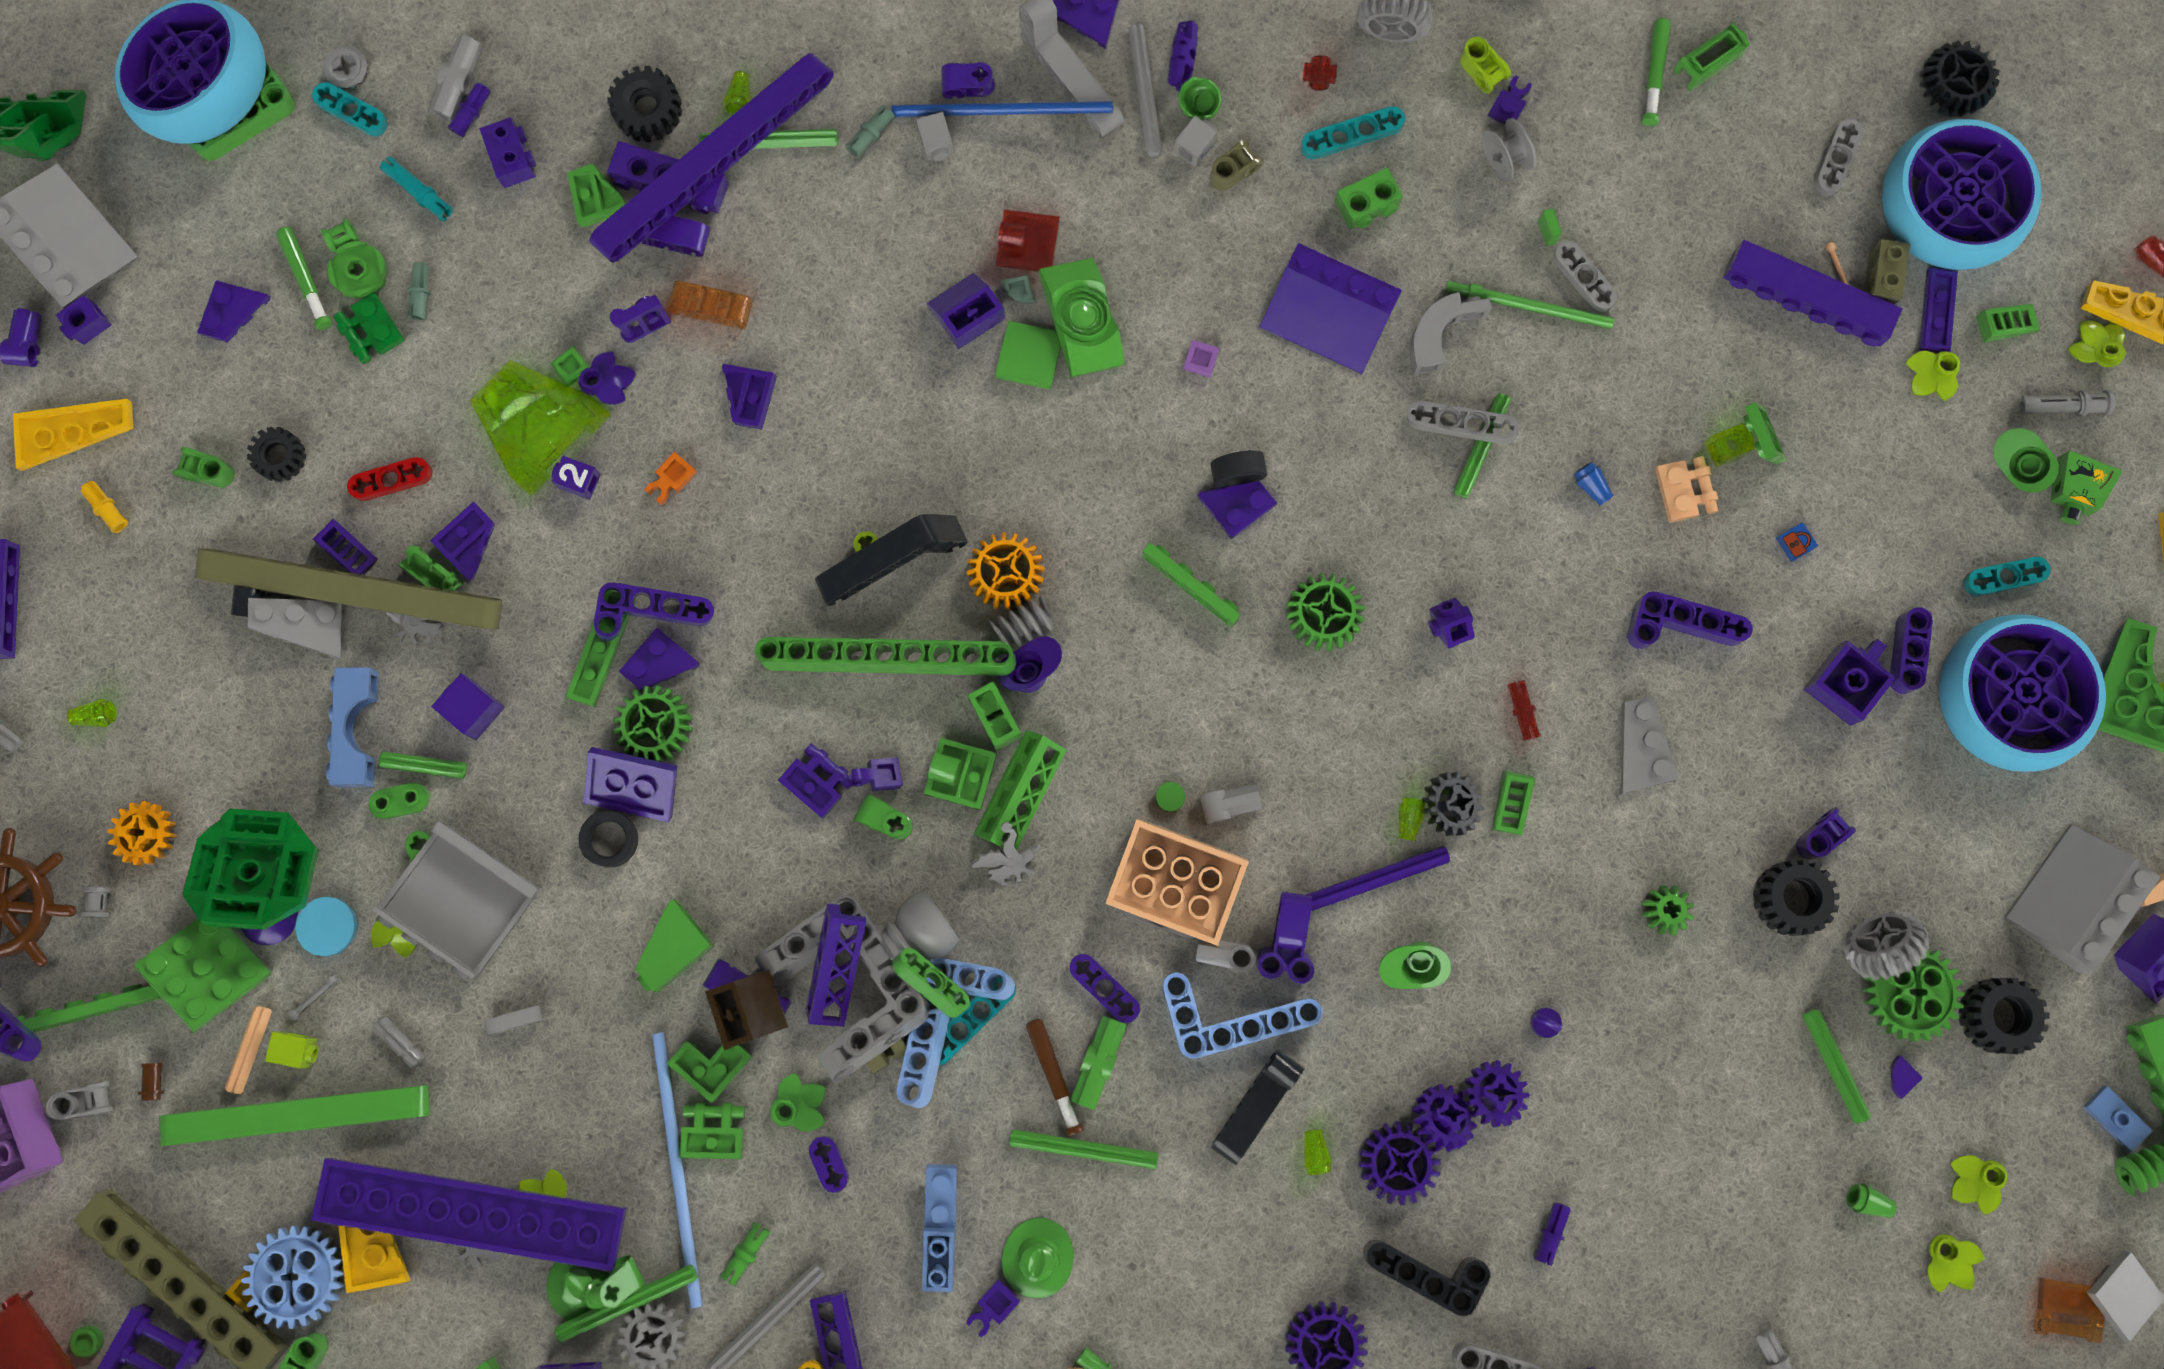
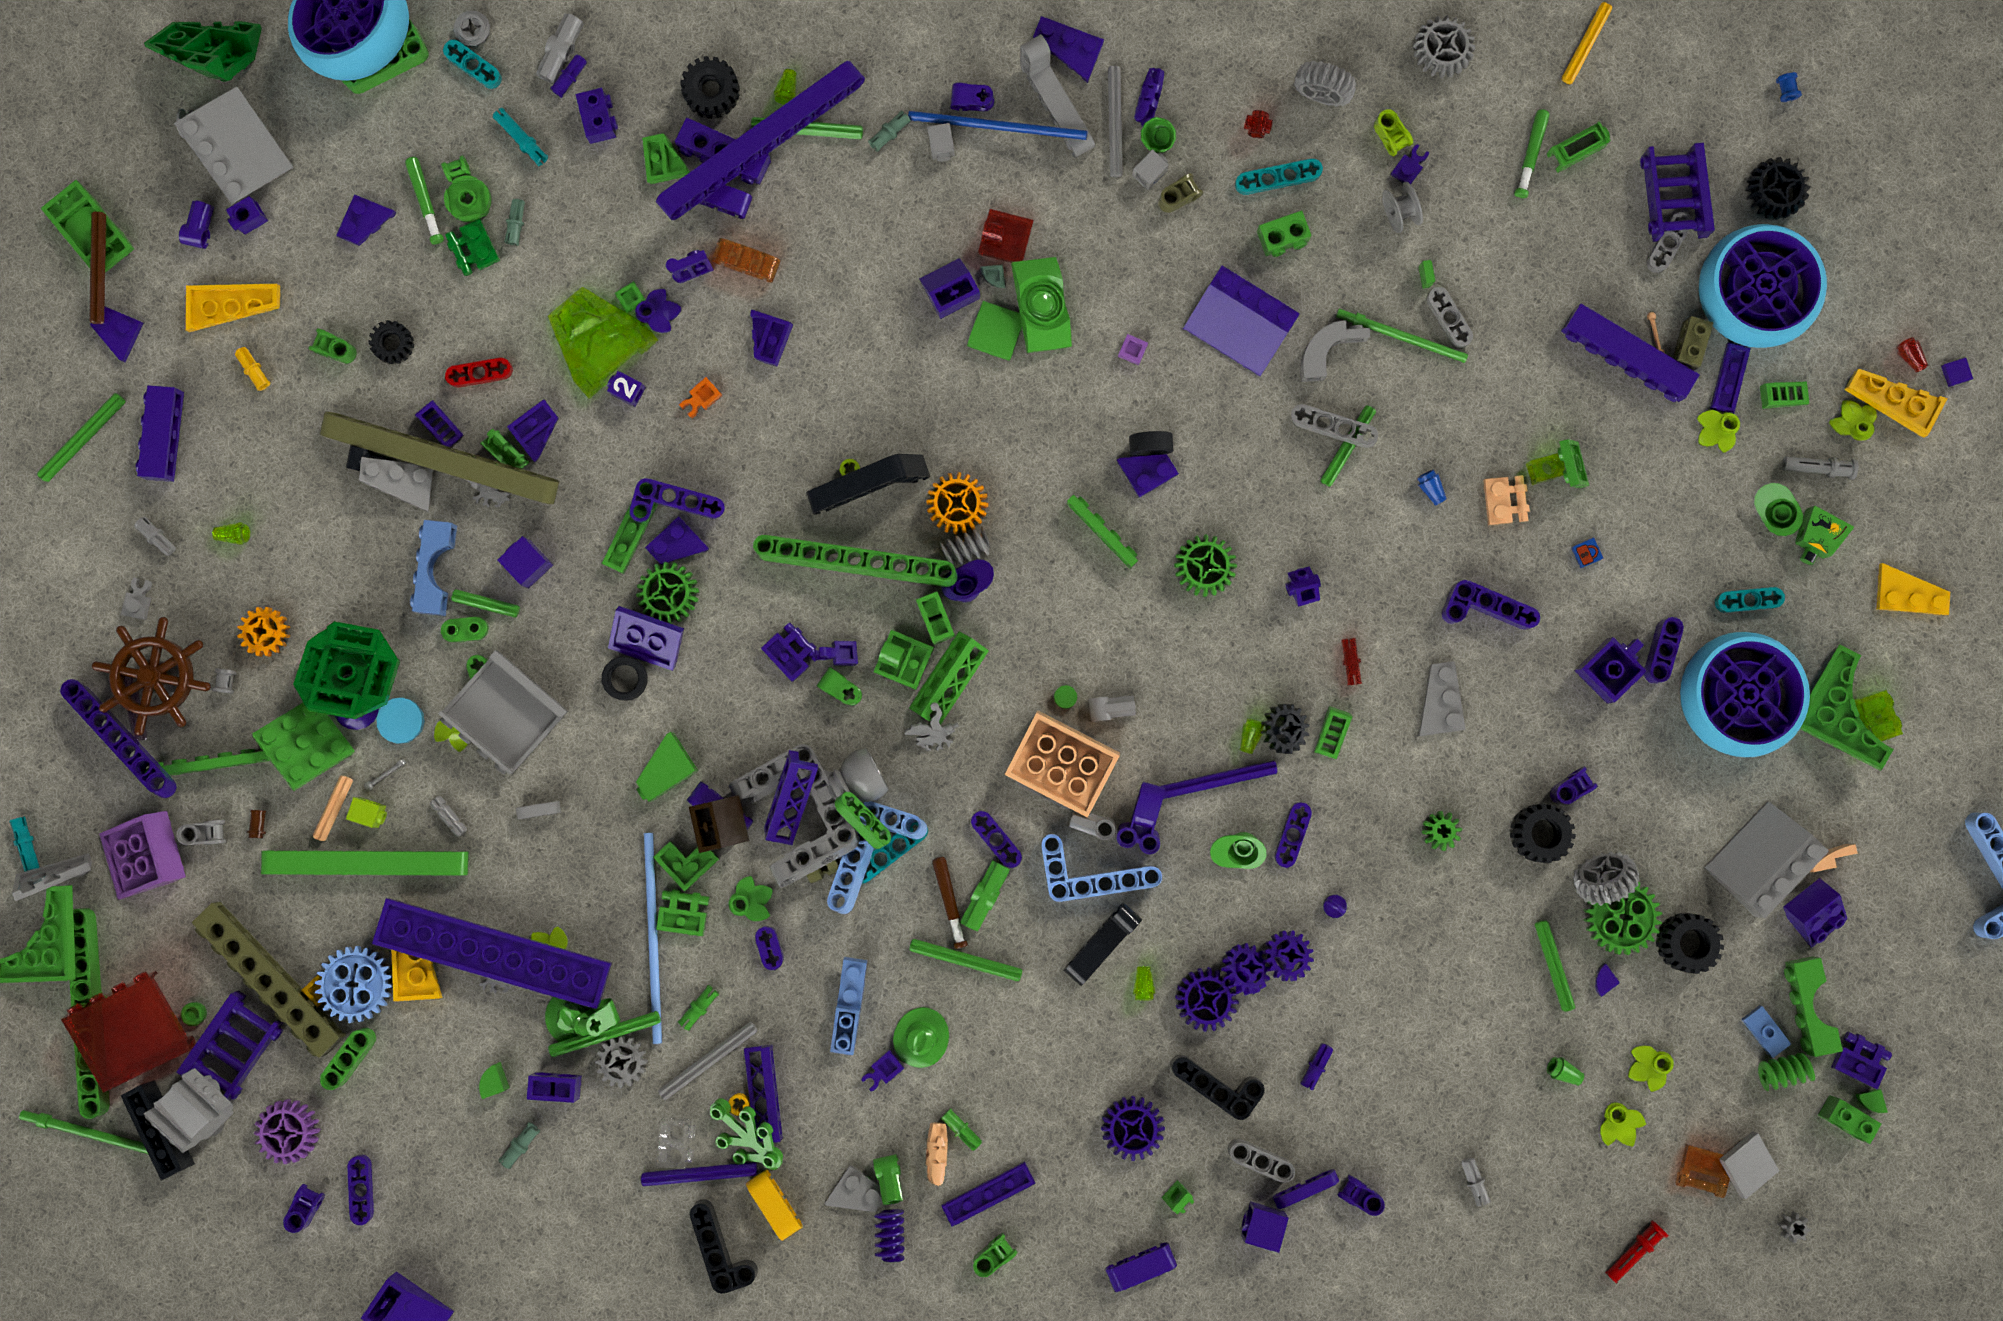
camera: 10 degrees right, 5 degrees up
(1491, 931) = (1282, 849): none -> dark purple beam
(1861, 79) = (1697, 179): none -> dark purple fence

